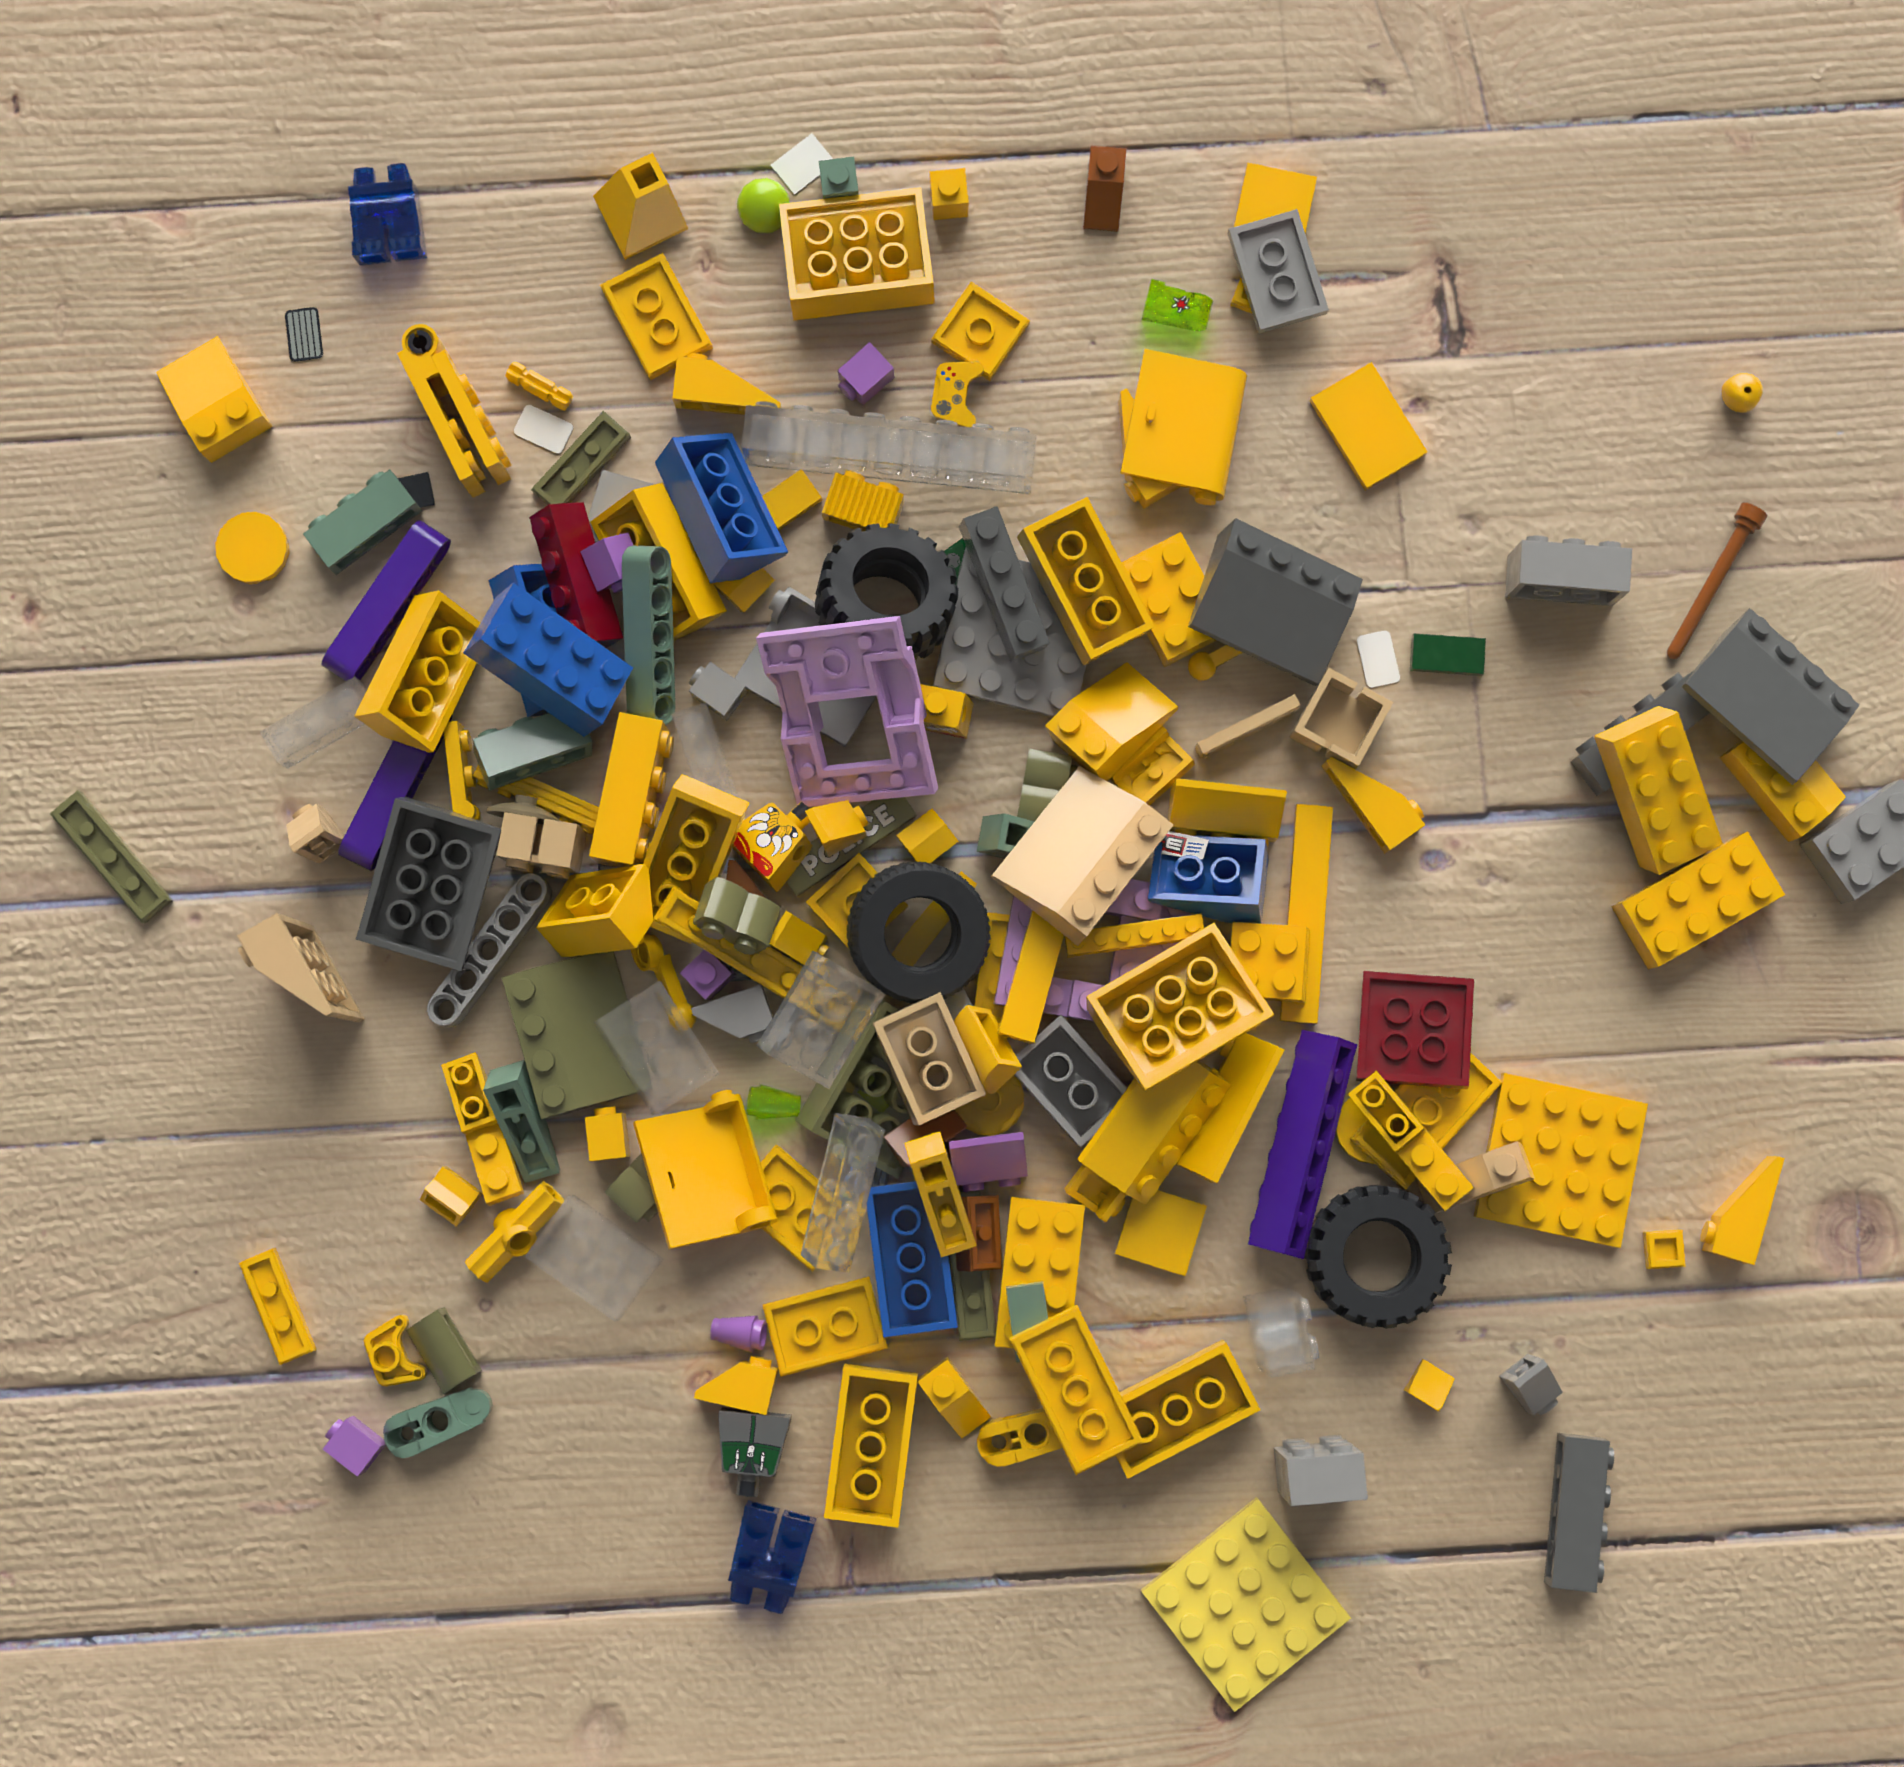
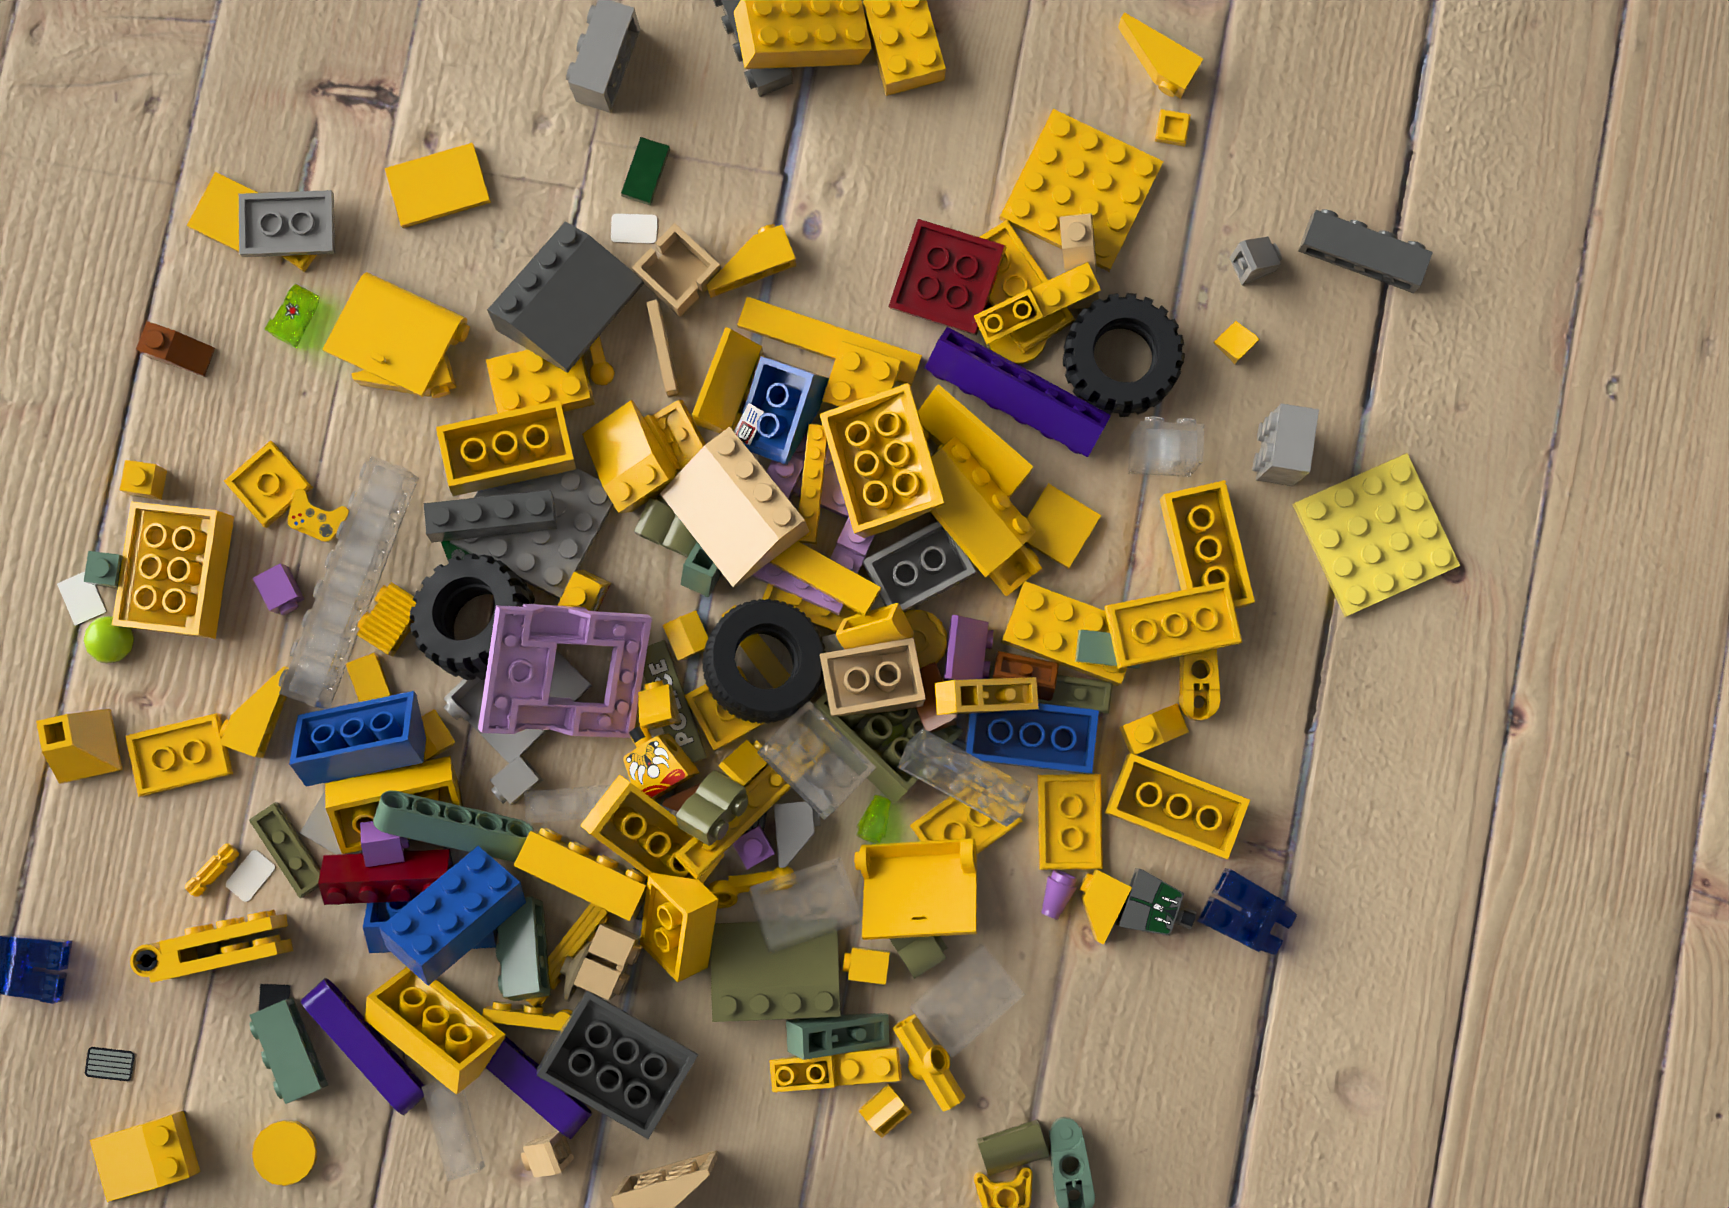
camera: 75 degrees left, 0 degrees up
(506, 941) = (682, 1011): light grey beam -> none

